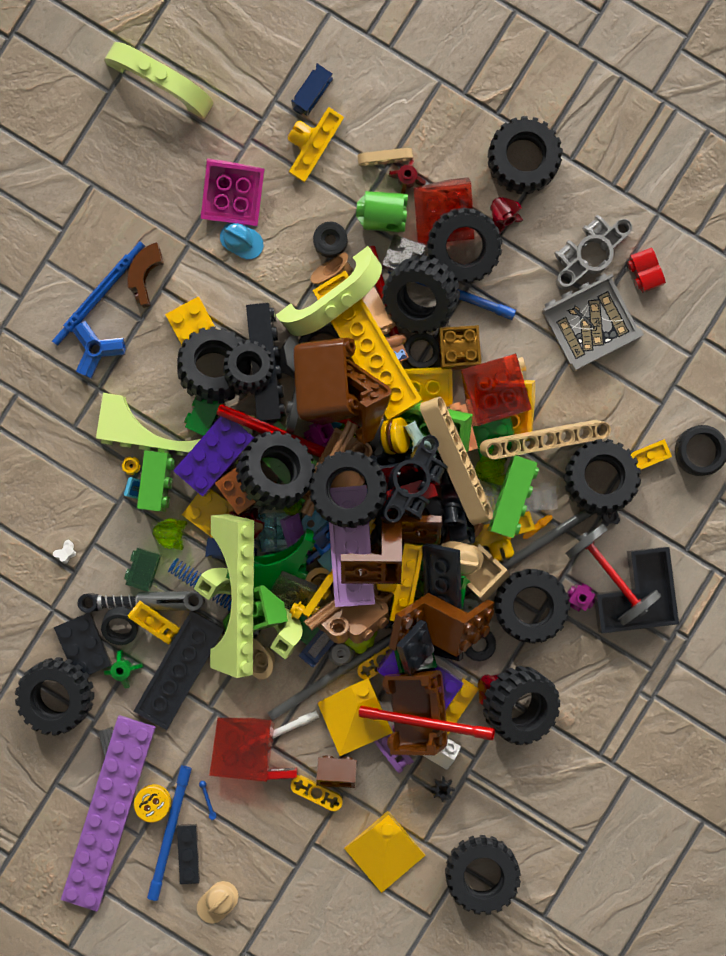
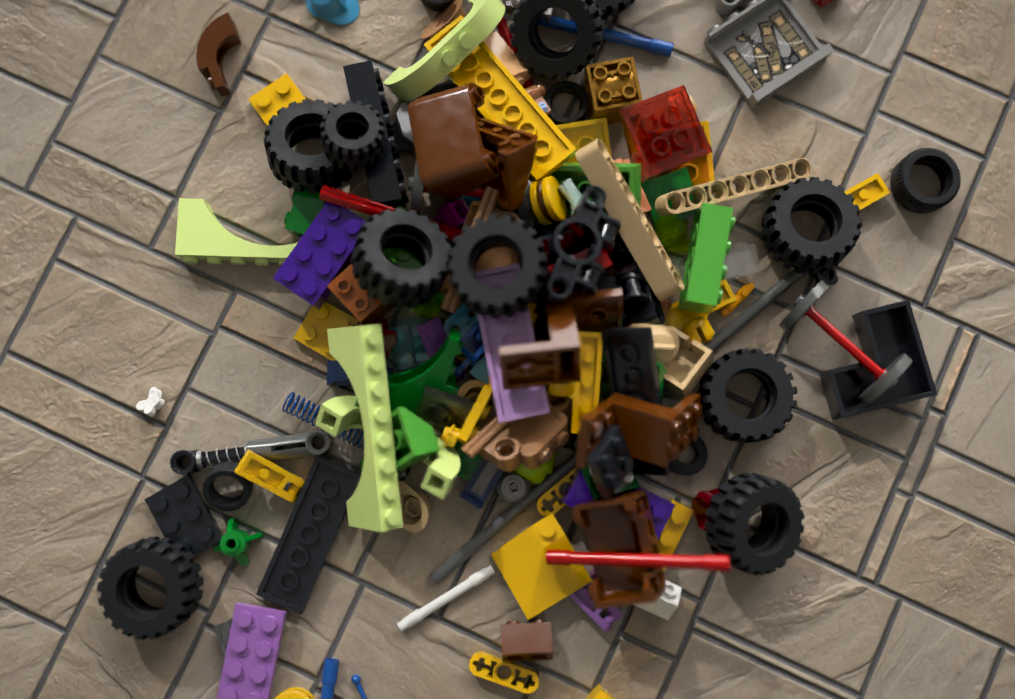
camera: 15 degrees left, 5 degrees down
(88, 339) = (162, 163): blue piece -> none
(98, 293) = (161, 89): blue axle -> none
(126, 465) = (219, 281): yellow plate -> none
(132, 488) = (230, 312): slope -> none
(142, 569) = (250, 411): clear green brick -> none
(155, 481) = (254, 298): bright green brick -> none
(170, 533) = (280, 361): clear neon green brick -> none
(242, 748) = (401, 626): clear red slope -> none
(282, 773) = (450, 653): red tile -> none
(442, 794) = (667, 654): black gear -> none
(574, 593) = (804, 386): magenta brick -> none

